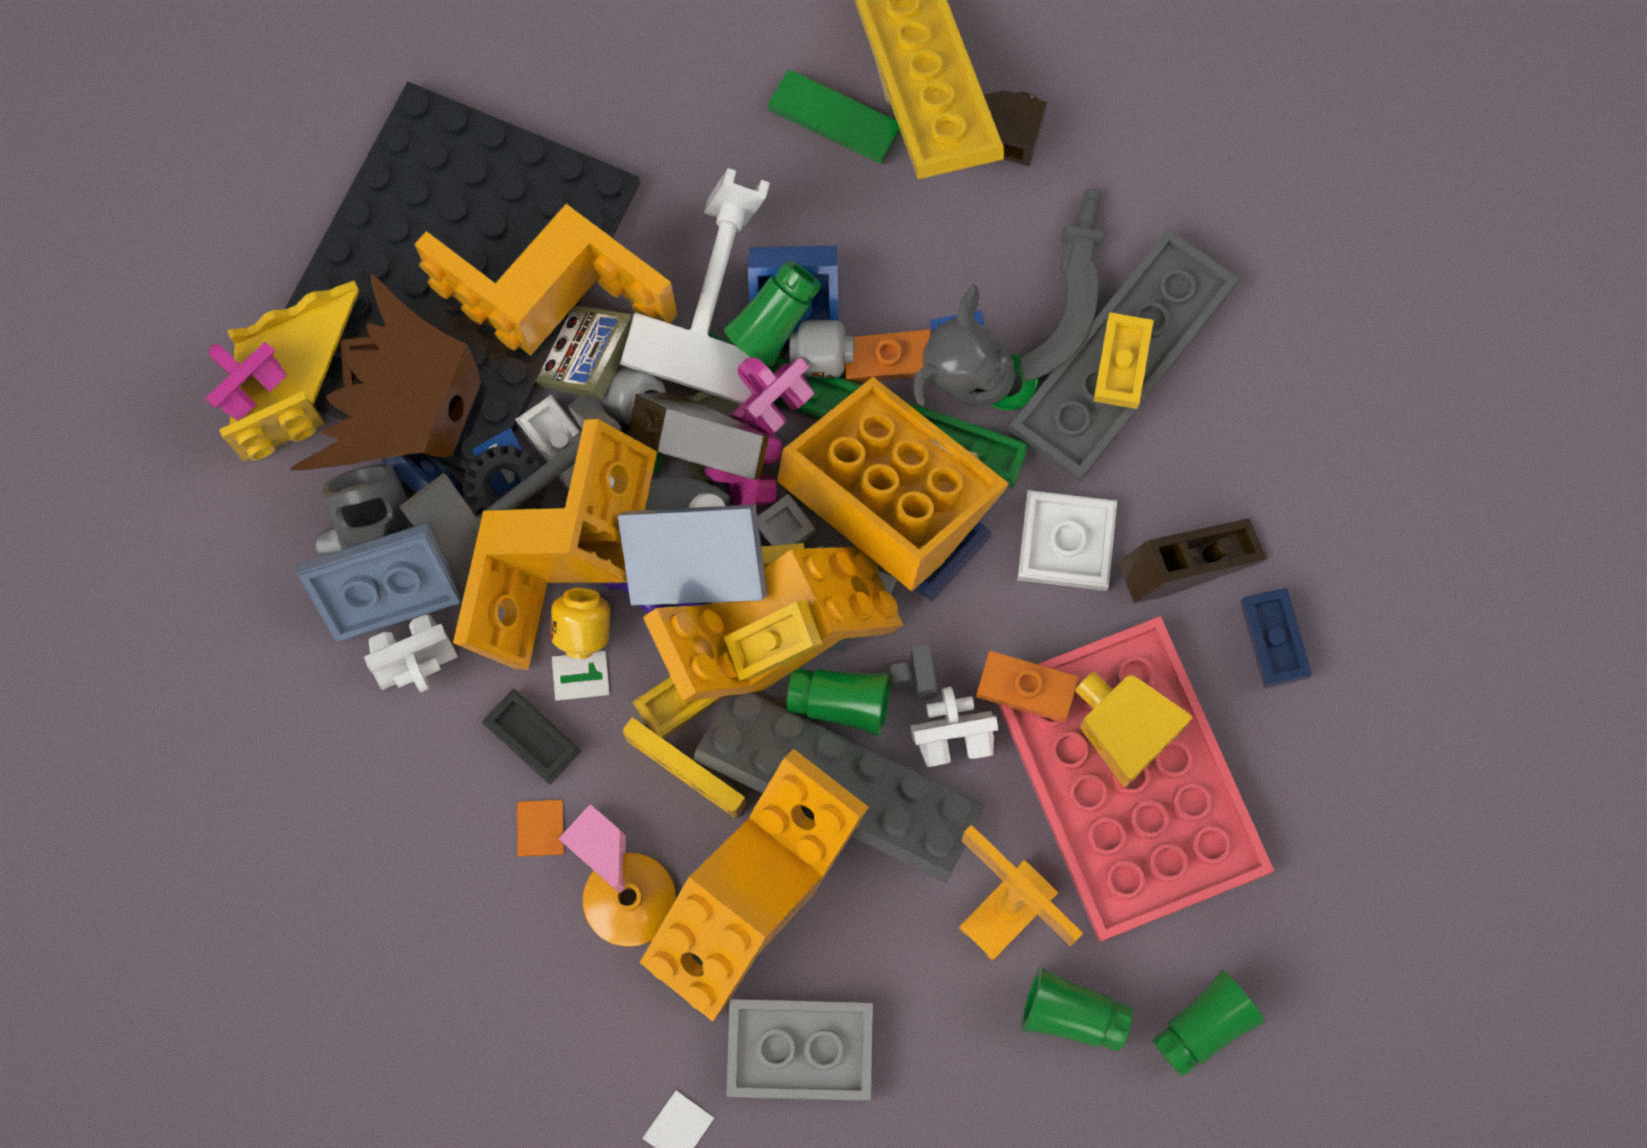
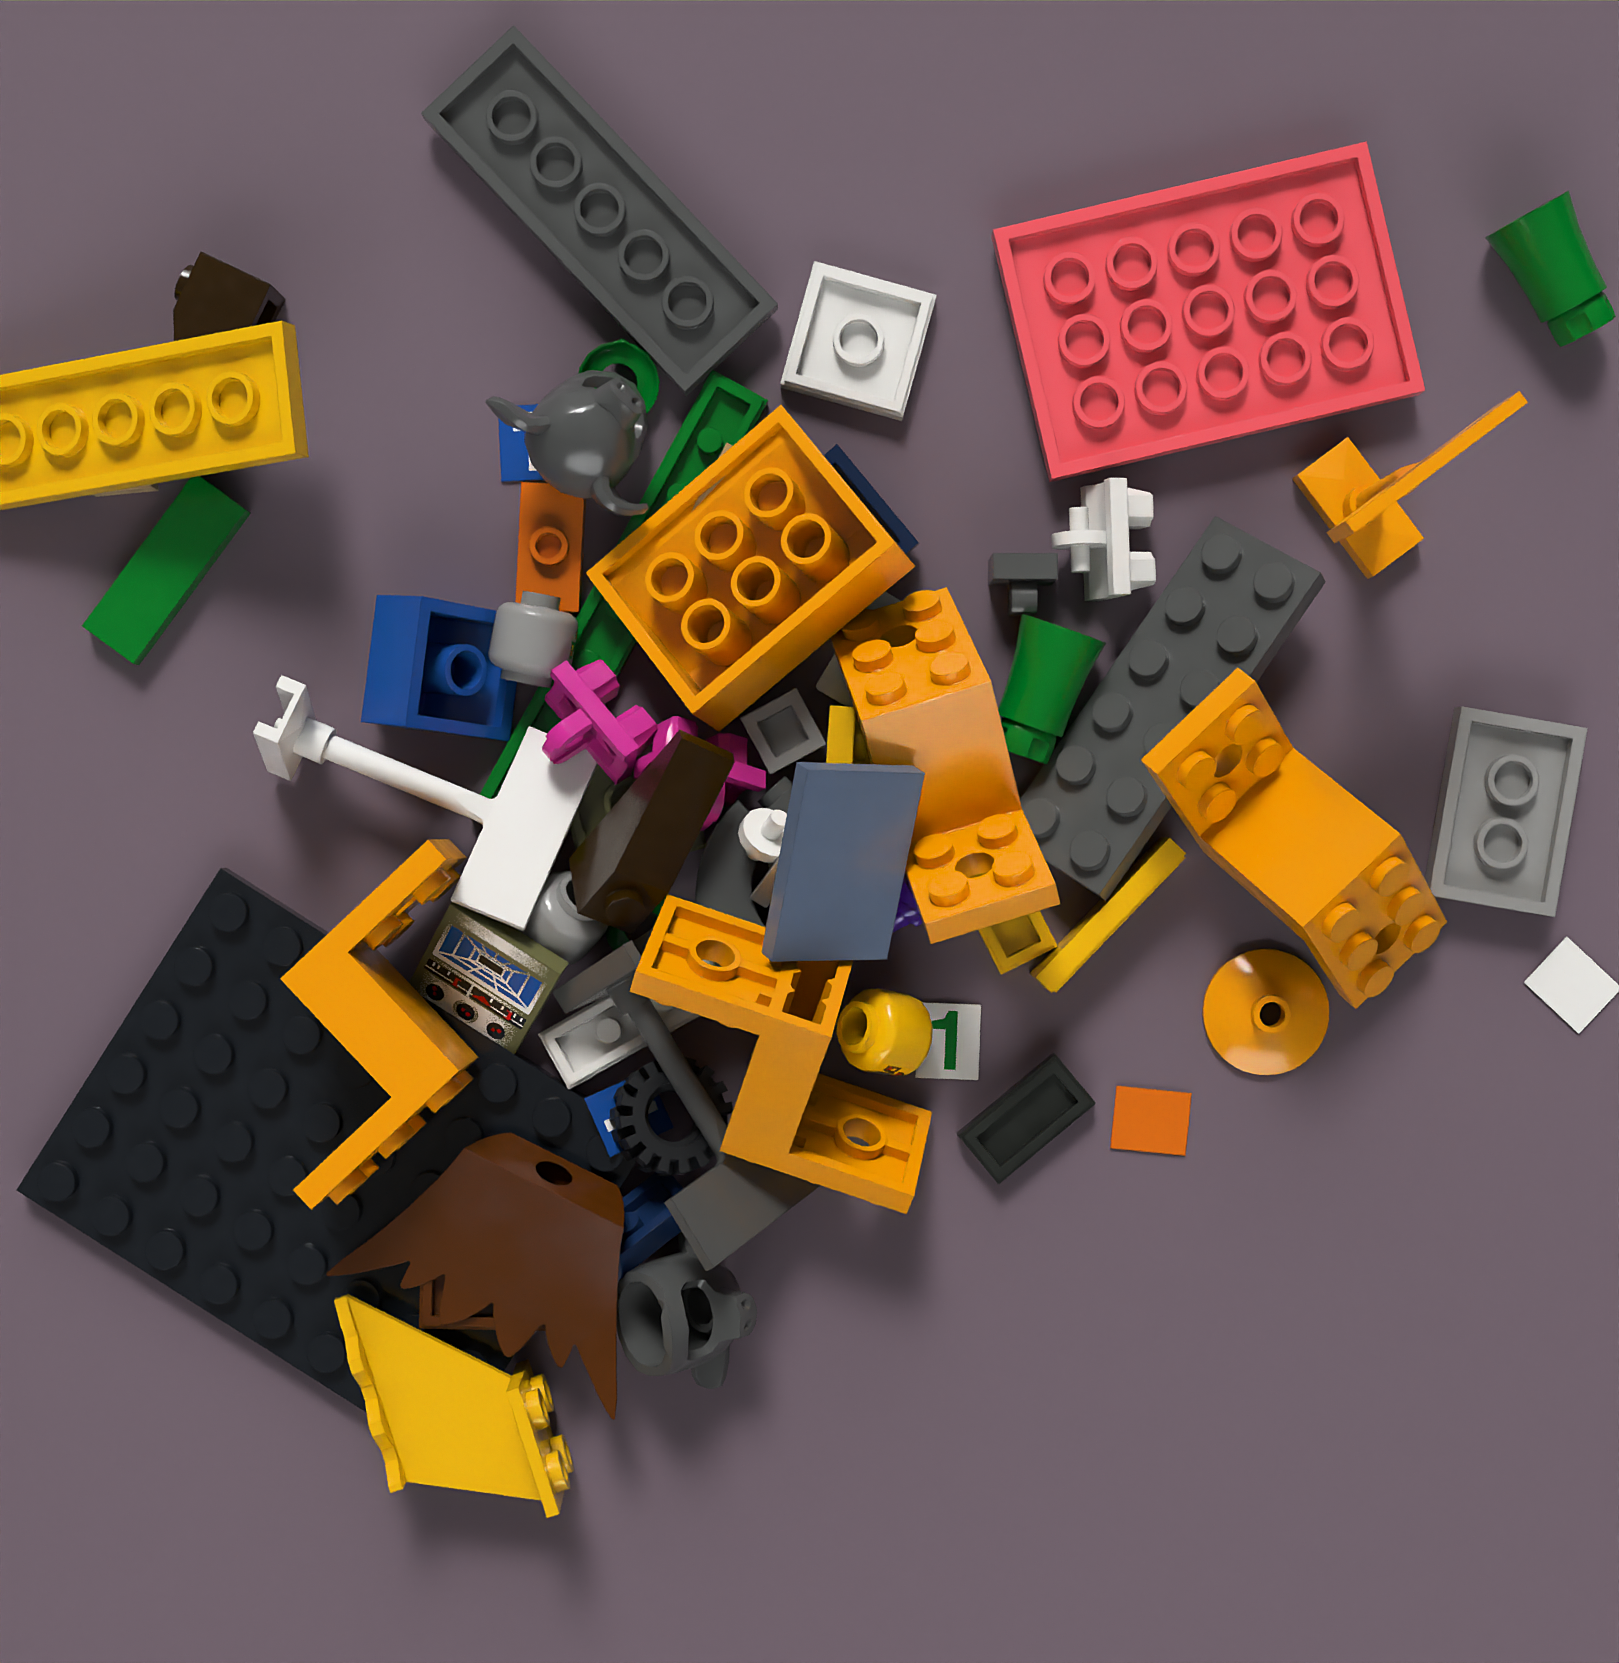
camera: 85 degrees left, 15 degrees up
(228, 393) = (486, 1498): dark pink hips -> none
(380, 582) = (793, 1305): sand blue tile -> none
(410, 658) = (902, 1272): white hips -> none
(598, 845) = (1196, 1044): bright pink tile -> none
(773, 313) = (479, 700): green plant -> none
(773, 640) = (984, 765): yellow plate -> none
(1027, 686) = (1070, 428): orange plate -> none
(1074, 1012) = (1507, 462): green plant -> none
(1081, 293) = (503, 257): dark grey sword -> none
(1123, 360) = (619, 211): yellow plate -> none
(1129, 723) = (1150, 296): yellow torso -> none
(1189, 559) = (918, 173): dark brown slope -> none
(1275, 638) = (1044, 78): dark blue plate -> none

